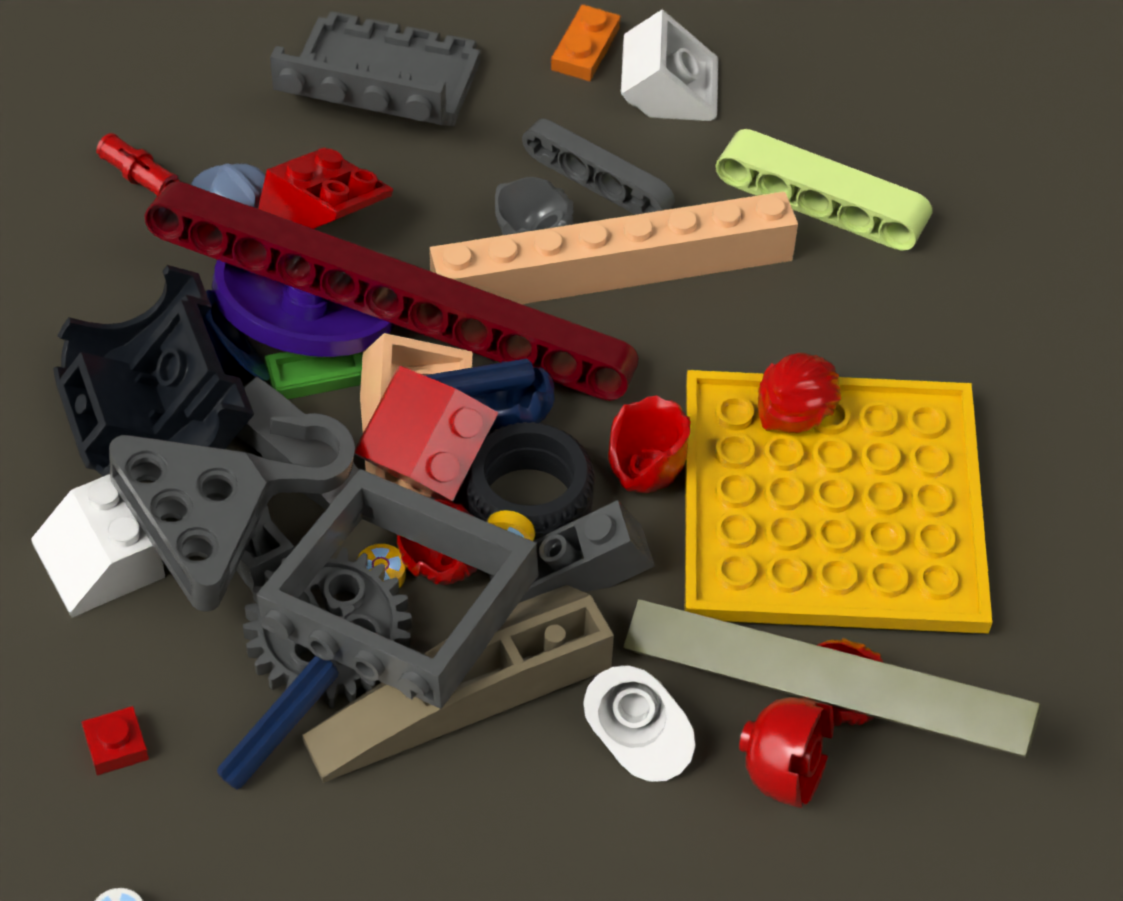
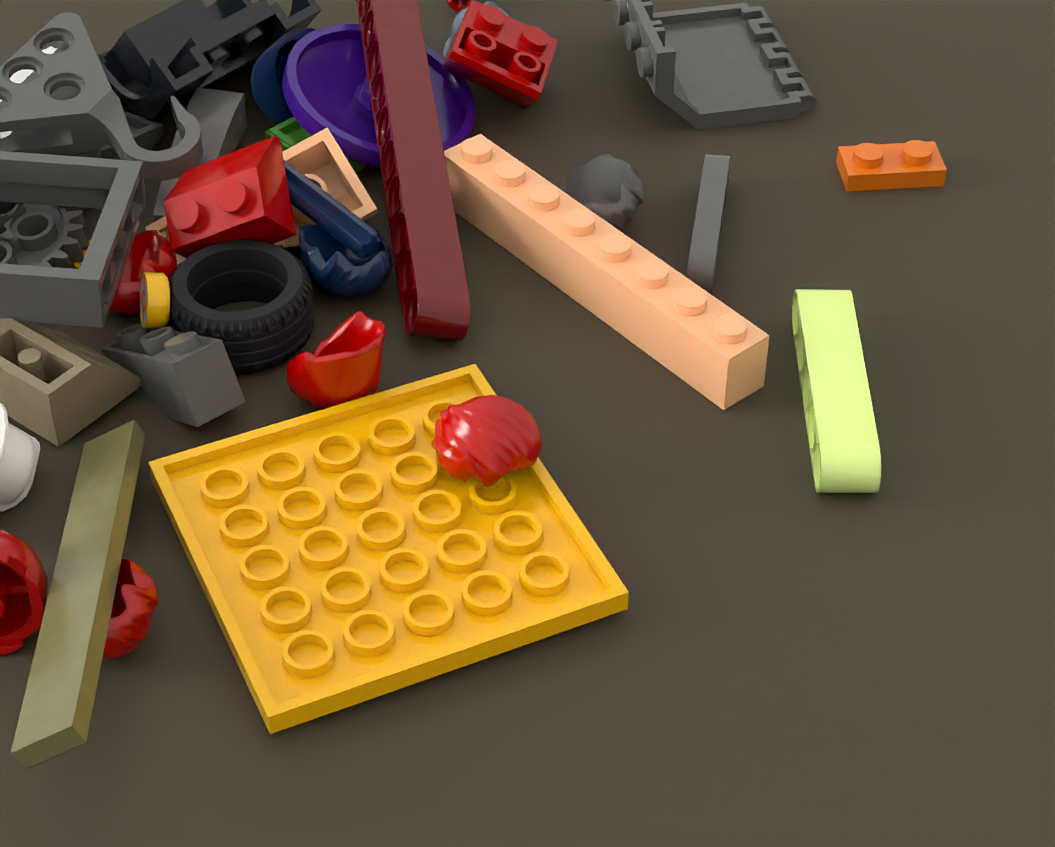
camera: 65 degrees right, 10 degrees down
(669, 71) = (896, 224): white slope -> none

